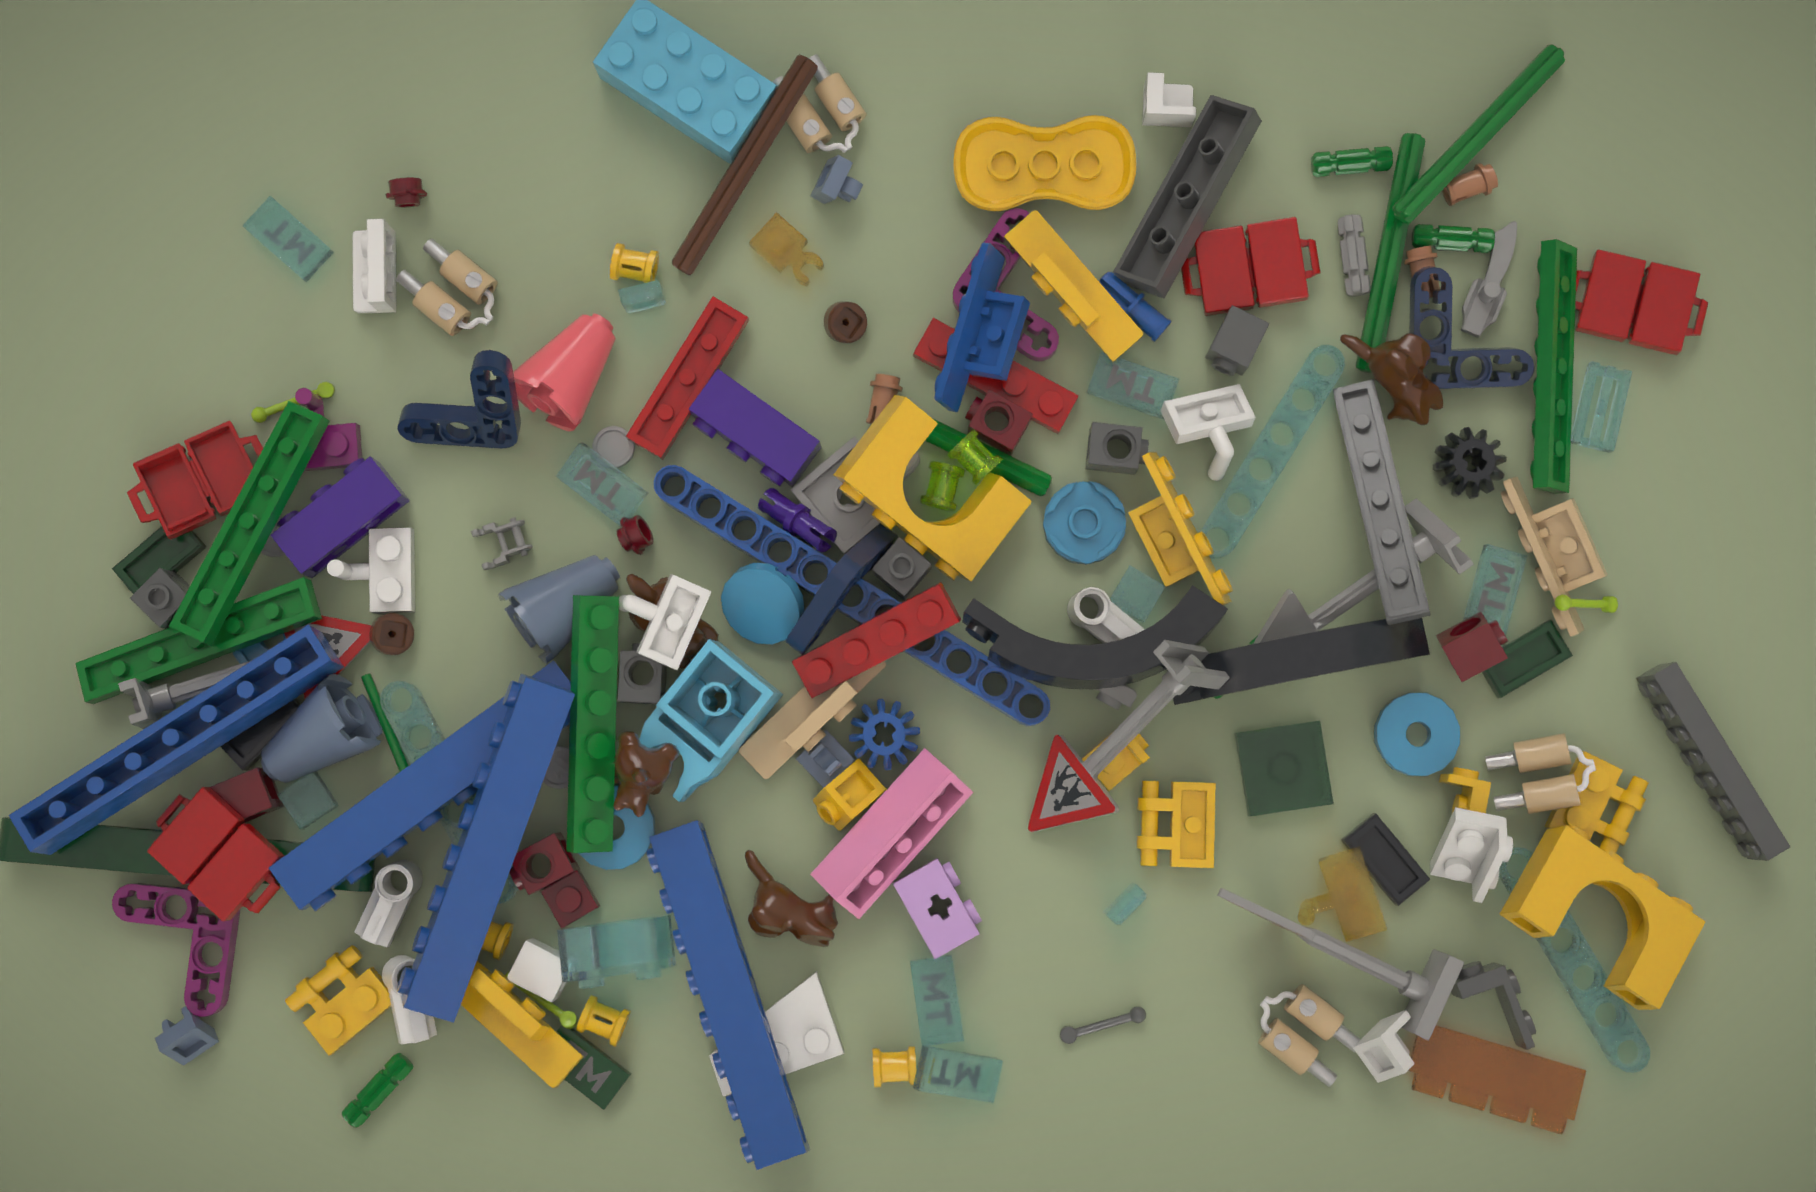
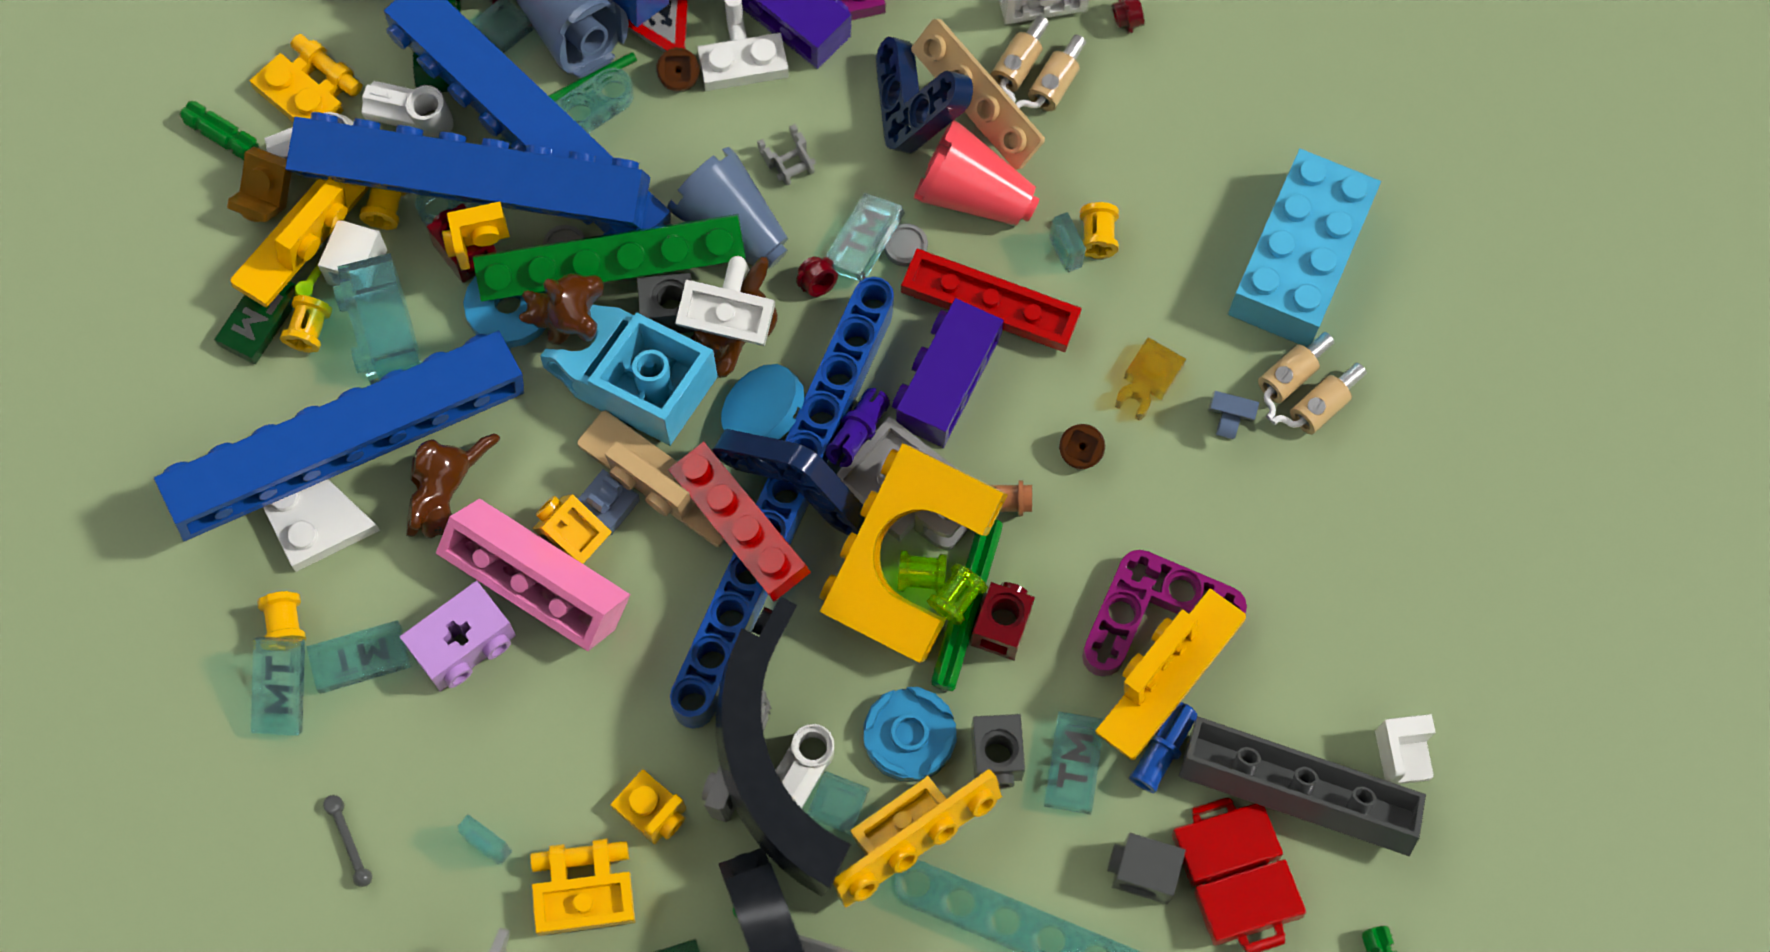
camera: 75 degrees right, 15 degrees down
(452, 1051) = (262, 186): none -> pearl gold bracket
(453, 362) = (990, 106): none -> tan bracket
(545, 841) = (474, 226): none -> yellow bracket
(570, 899) = (430, 276): dark red plate -> none
(744, 164) = (1230, 316): reddish brown axle -> none
(898, 736) = (638, 568): blue gear -> none
(902, 568) = (821, 540): dark grey brick -> none
(984, 332) = (1097, 578): blue bracket -> none
(1012, 163) = (1310, 660): yellow plate -> none
(1023, 387) = (1055, 614): red plate -> none
(1070, 785) = (607, 755): light grey piece -> none
(1210, 416) = (1053, 849): white plate -> none

